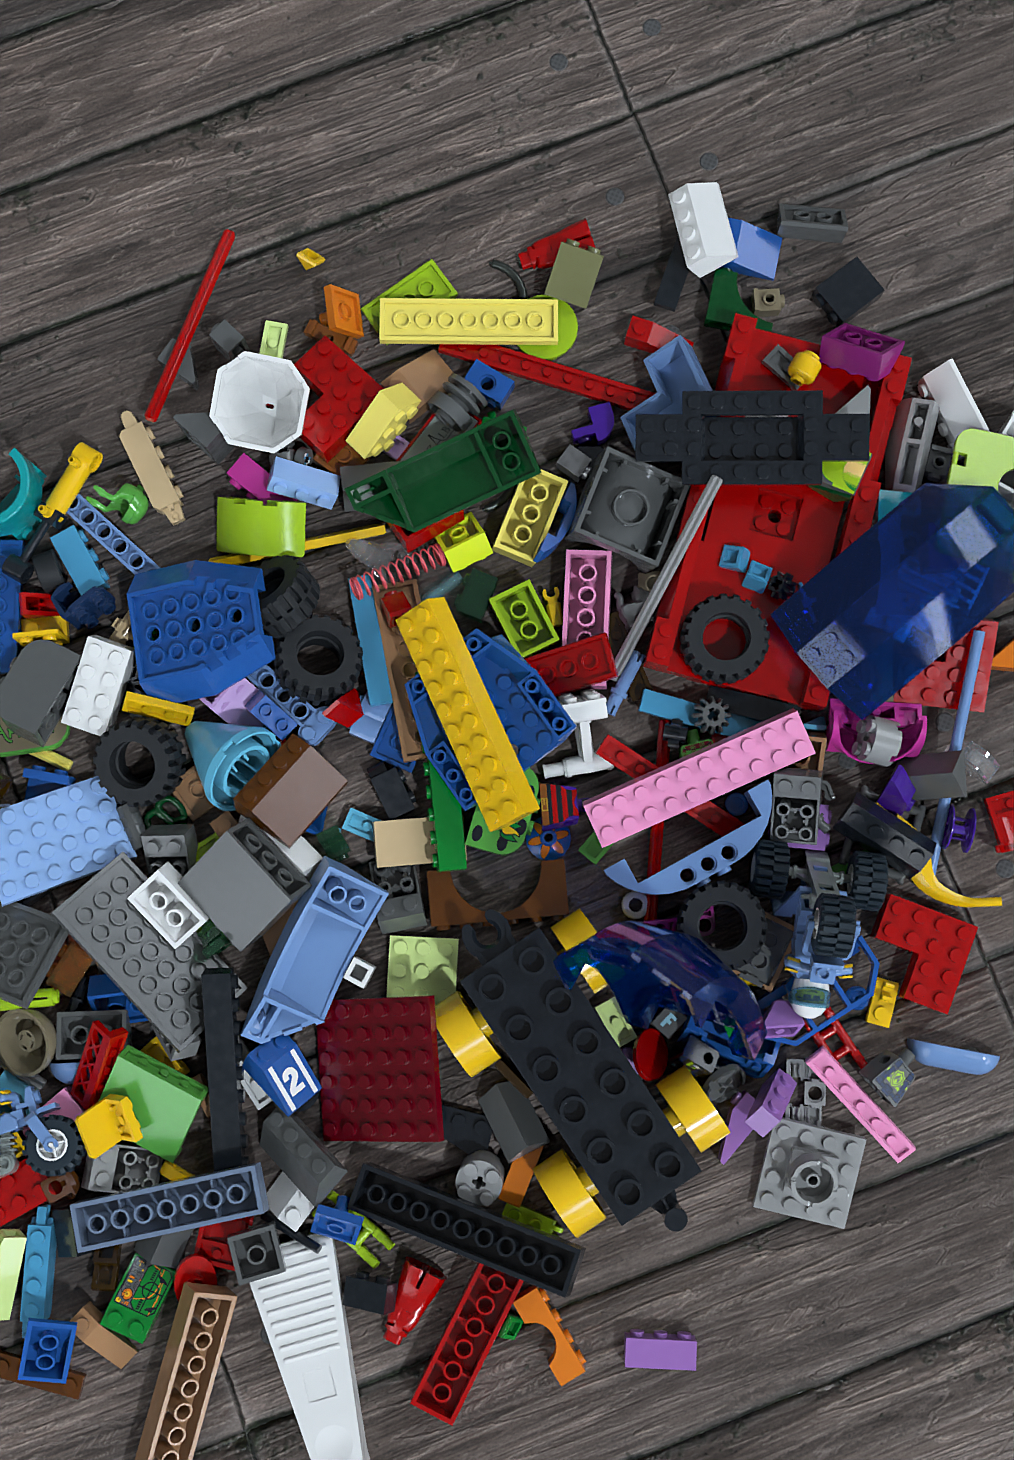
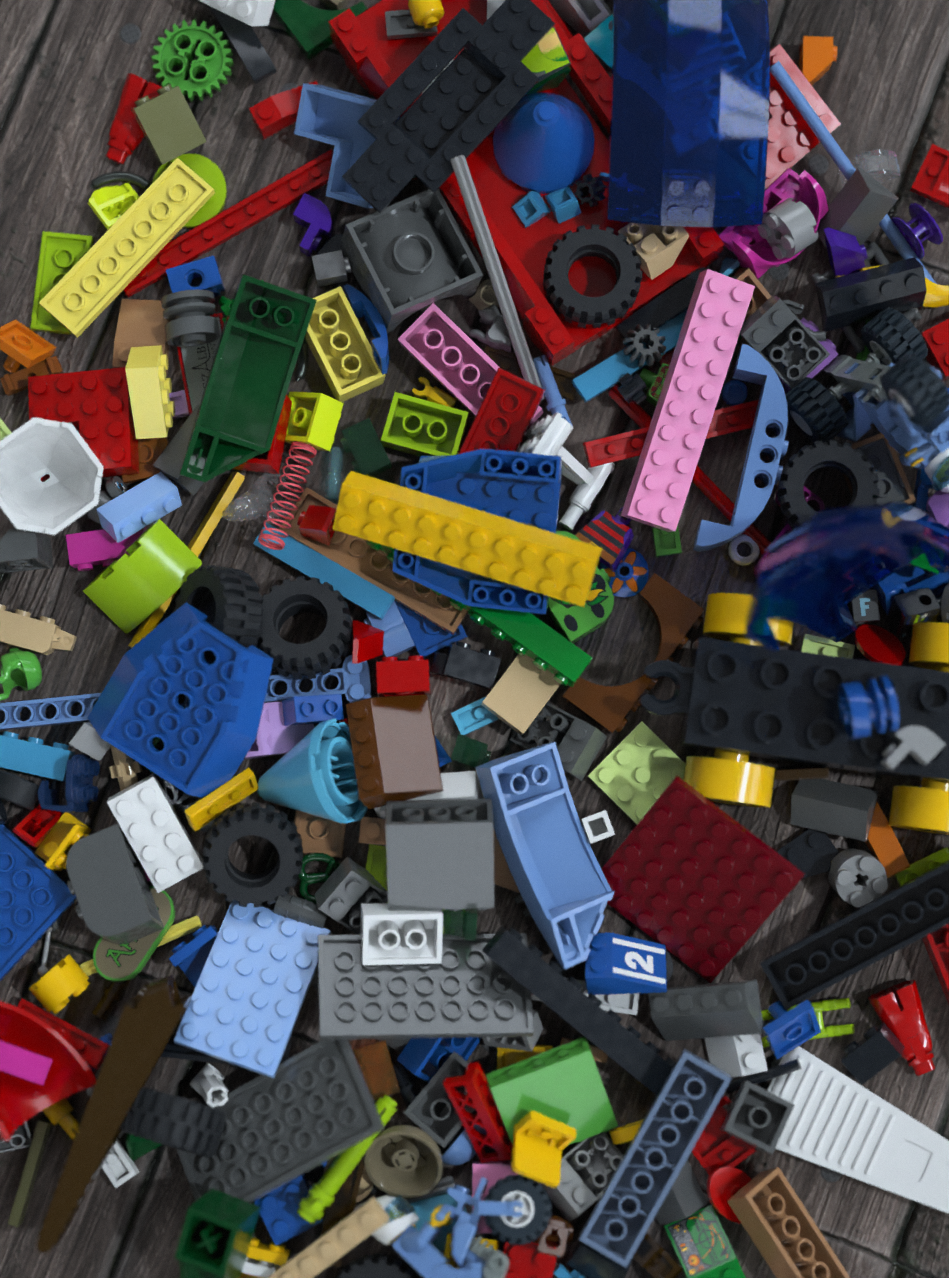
camera: 50 degrees left, 0 degrees up
(118, 589) = (89, 742): none -> light grey slope
(342, 753) = (403, 677): none -> red brick
(490, 285) = (112, 202): none -> neon yellow slope
(587, 1084) = (874, 706): none -> blue wheel
(596, 1136) = (916, 741): none -> light grey brick
(623, 235) = (171, 55): none -> bright green gear
(782, 663) = (655, 245): none -> tan slope
(786, 527) = (544, 143): none -> blue cone

